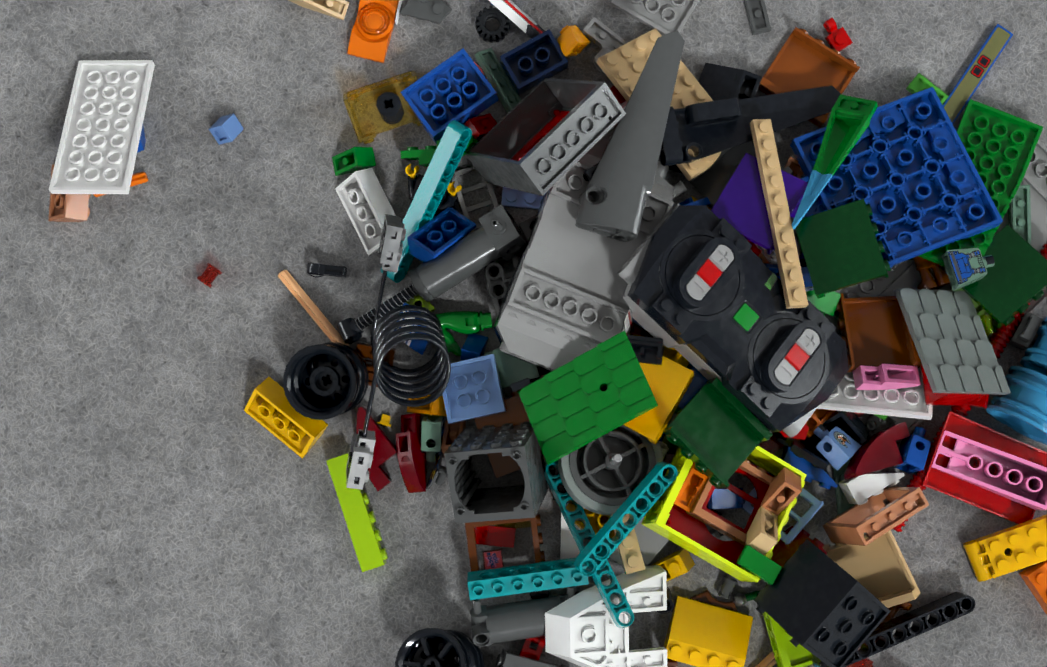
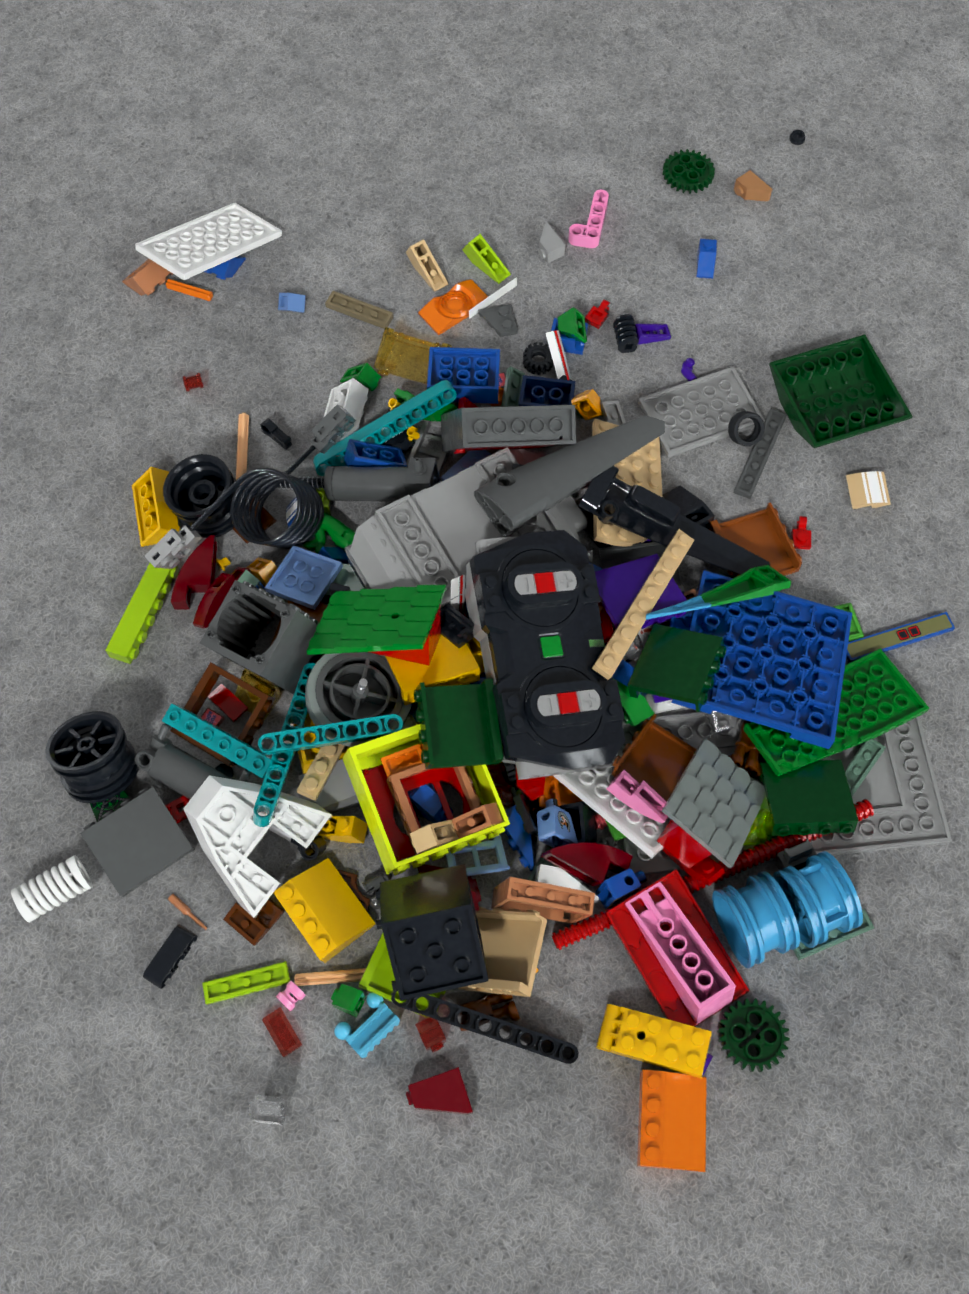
camera: 35 degrees right, 20 degrees down
(293, 91) = (359, 310): none -> dark tan plate
(390, 108) = (415, 357): black piece -> none
(759, 564) = (407, 853): green tile -> none
(966, 266) = (776, 757): torso -> none

